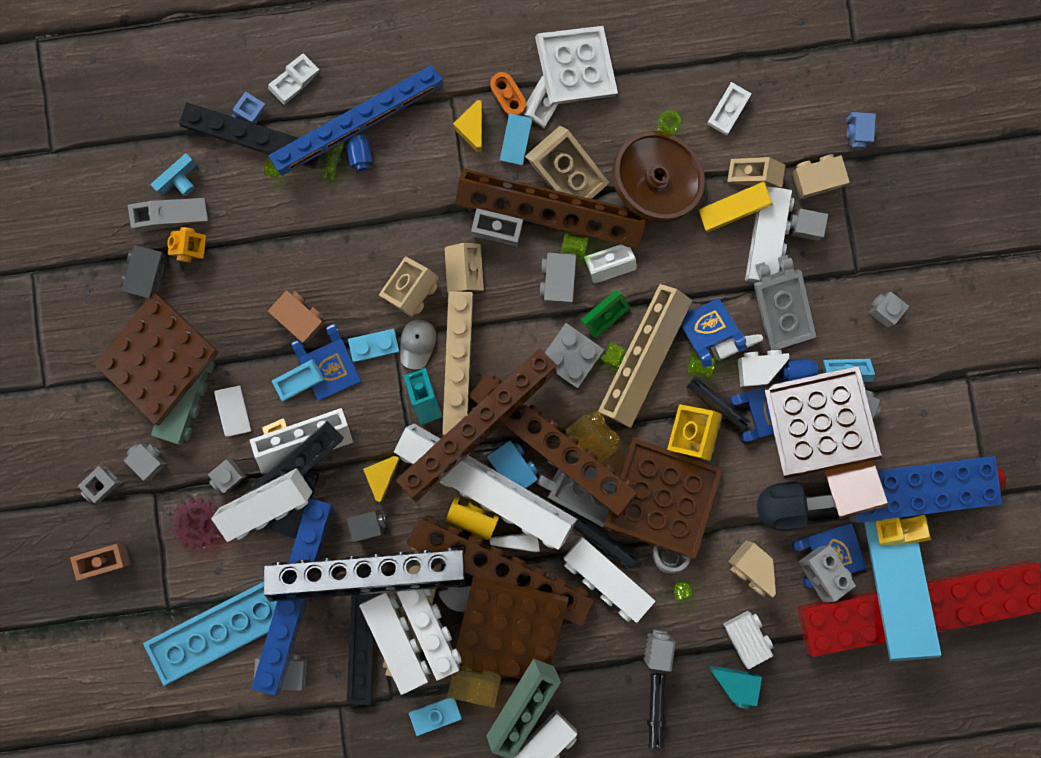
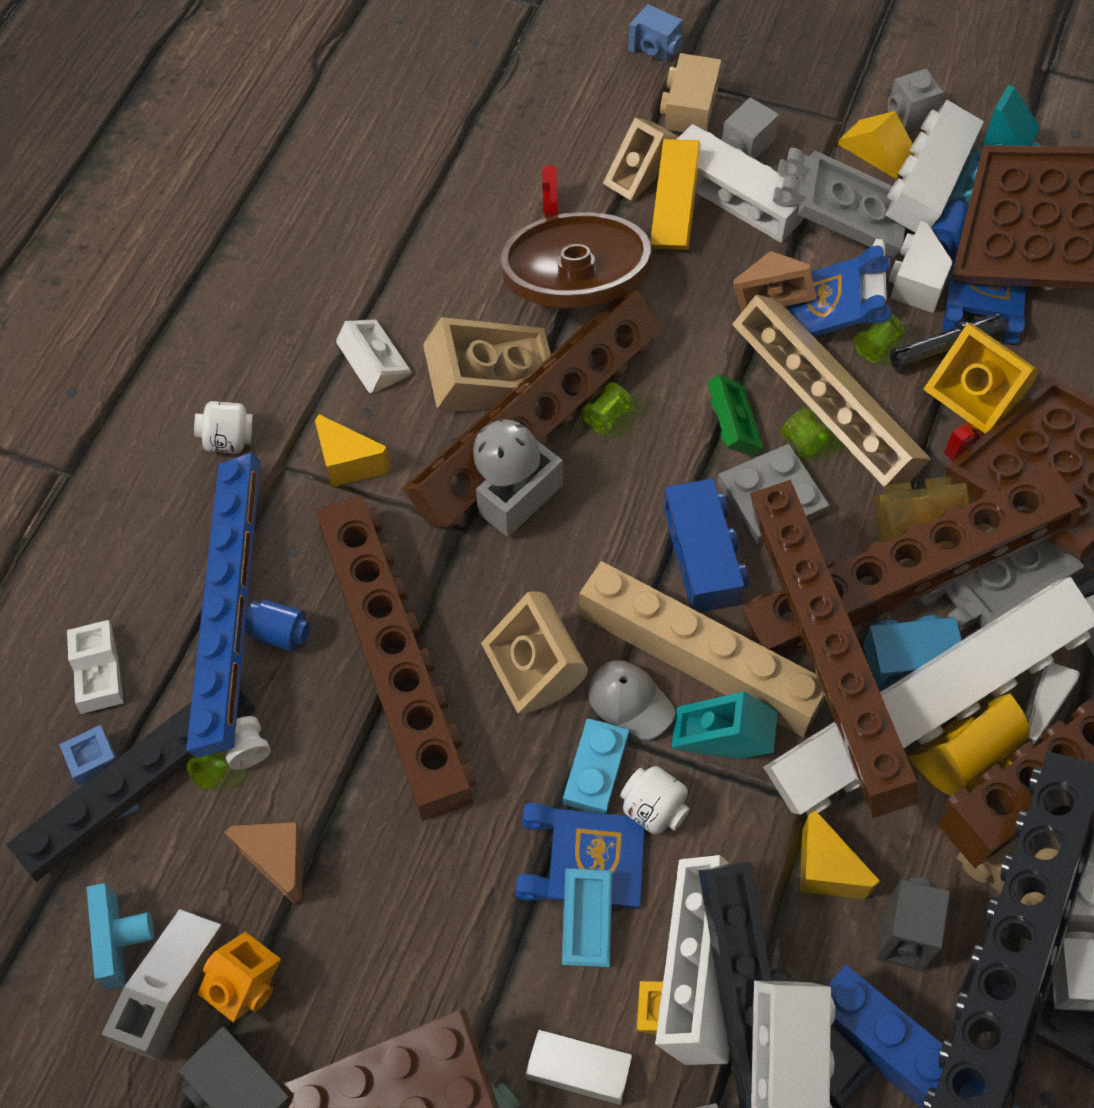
camera: 55 degrees left, 25 degrees down
(248, 225) = (275, 852): none -> medium nougat slope
(293, 178) = (248, 745): none -> white wheel
(296, 316) = (477, 859): nougat brick -> none
(333, 159) = (260, 671): clear neon green piece -> none
(368, 382) = (655, 800): none -> white head
(424, 150) = (432, 790): none -> reddish brown brick
(452, 54) = (224, 427): none -> white head
(464, 267) = (550, 569): tan panel -> none
(504, 207) = (504, 440): none -> light grey helmet
(509, 94) = (334, 388): orange plate -> none
(516, 139) = (404, 406): medium azure tile -> none
(518, 336) = (704, 545): none -> blue brick
(559, 278) = (646, 448): light grey brick -> none
(576, 65) = (353, 284): white plate -> none
(610, 263) = (661, 381): white slope -> none
(657, 440) = (961, 440): none -> red tile
(674, 118) = (507, 214): clear neon green bush -> none
(703, 291) = (776, 278): none -> medium nougat slope
(708, 131) = (549, 191): none -> red tile
(729, 108) = (533, 150): white plate -> none
(838, 343) = (934, 167): none -> white brick
(847, 303) = (880, 142): none -> yellow slope
(888, 377) = (1012, 122): none -> teal slope

